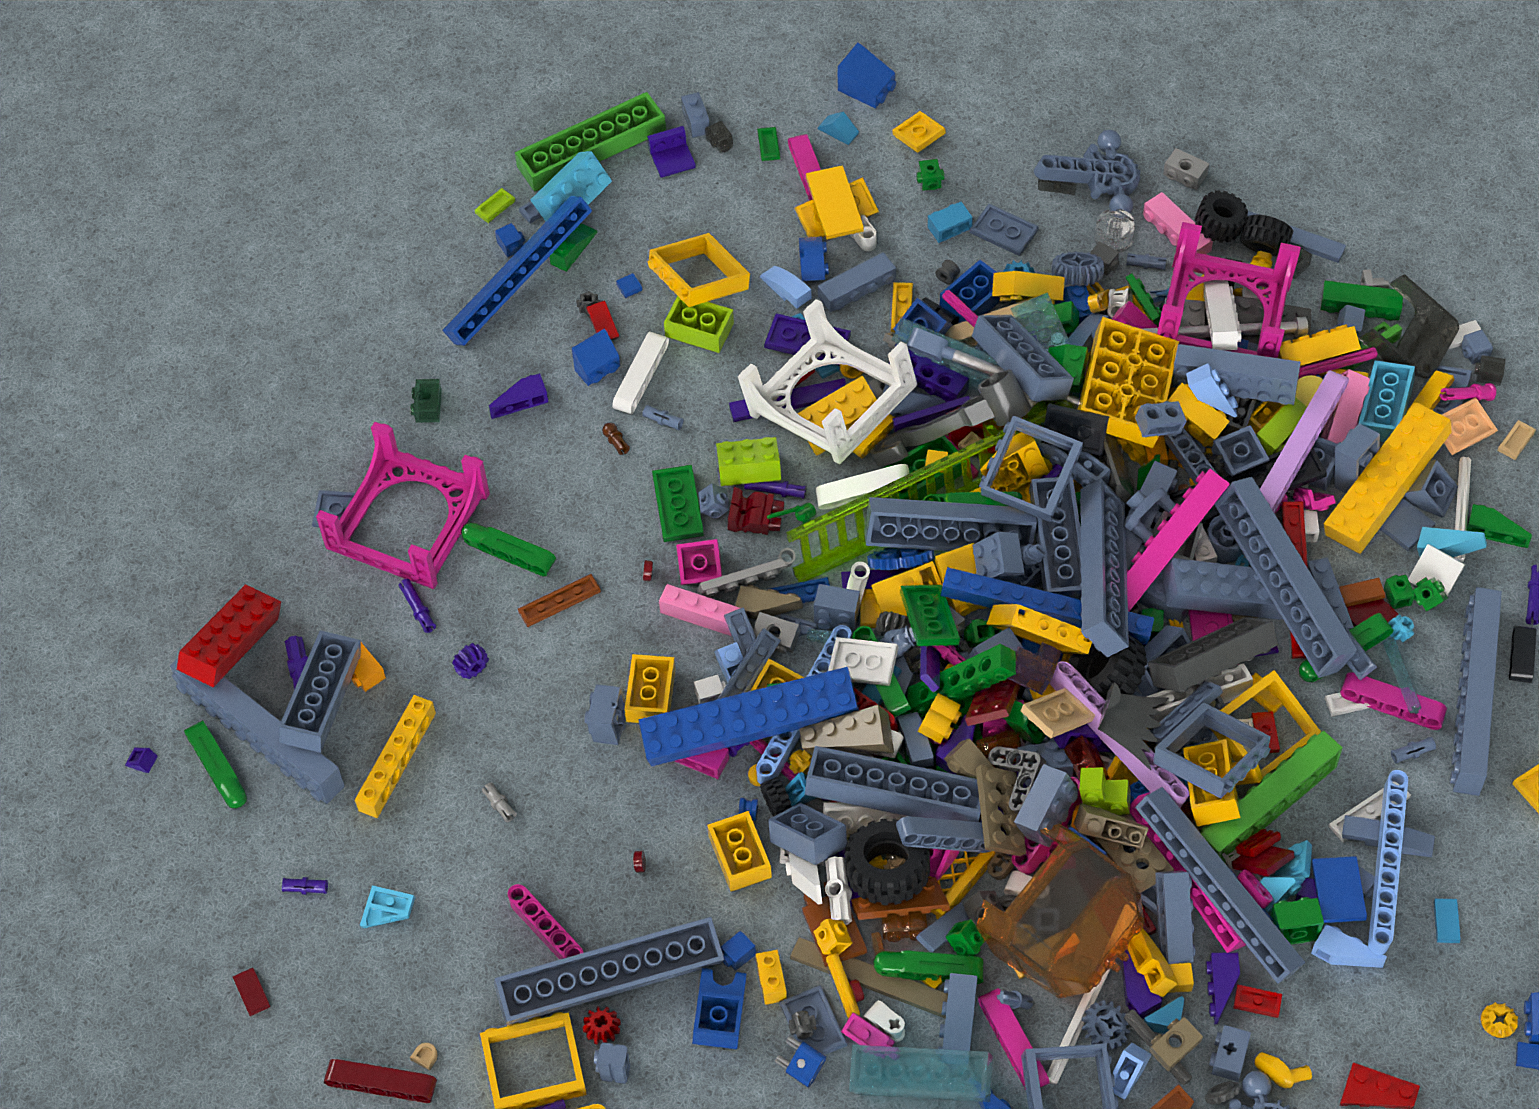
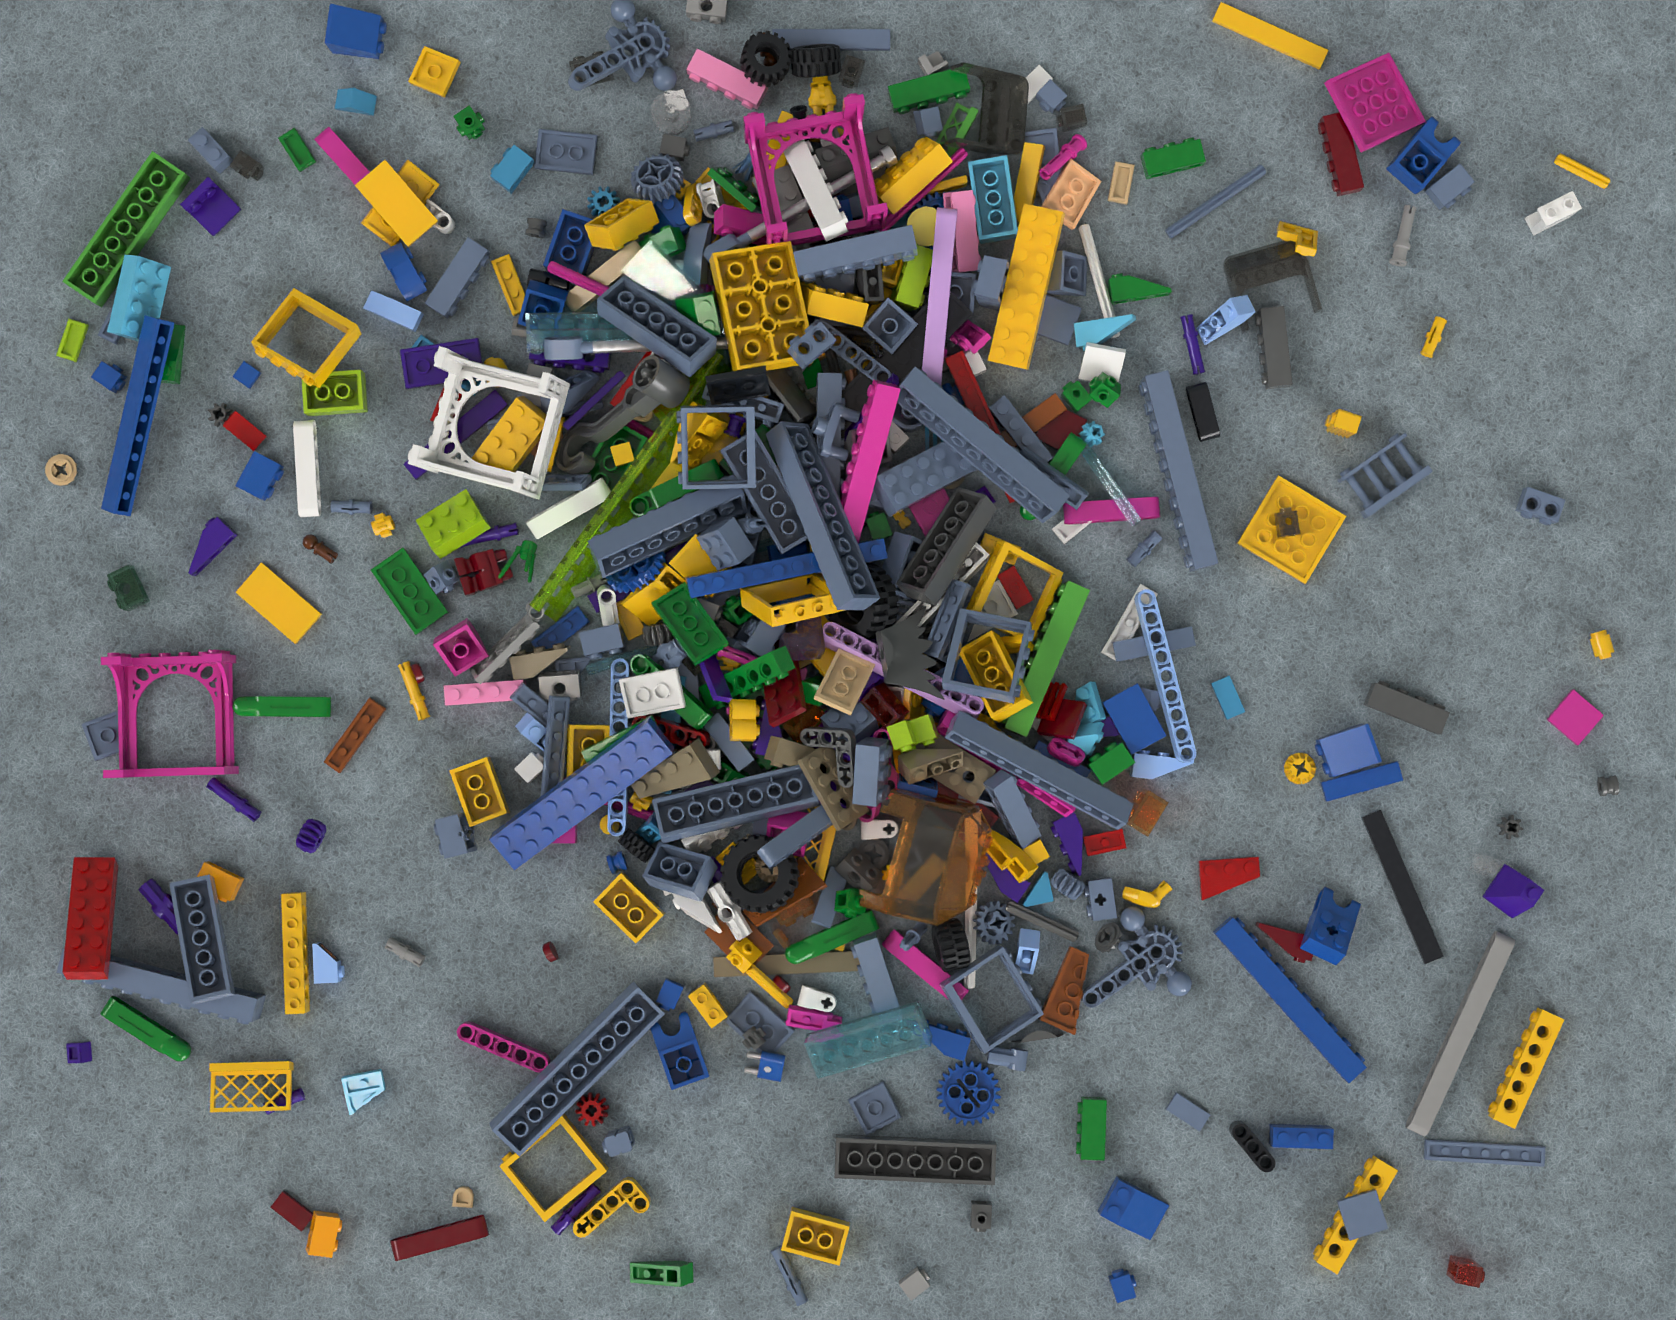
camera: 25 degrees left, 30 degrees up
(269, 1022) = (323, 1234): none -> light orange brick
(292, 841) = (255, 1069): none -> yellow fence
(416, 782) = (326, 965): none -> light blue slope
(430, 287) = (52, 471): none -> tan gear
(553, 467) = (278, 603): none -> yellow tile
(634, 591) = (416, 697): none -> yellow pin
(683, 440) = (383, 525): none -> yellow gear
(844, 562) = (588, 585): none -> light grey axle
(859, 460) = (566, 482): none -> sand blue tile
(1051, 1019) = (951, 945): none -> black tyre
(1168, 1055) = (1057, 930): dark tan brick -> none
(1202, 1018) = (1067, 883): none -> sand blue gear
(1208, 389) = (841, 285): light blue slope -> none
(1314, 983) = (1146, 811): none -> clear orange brick

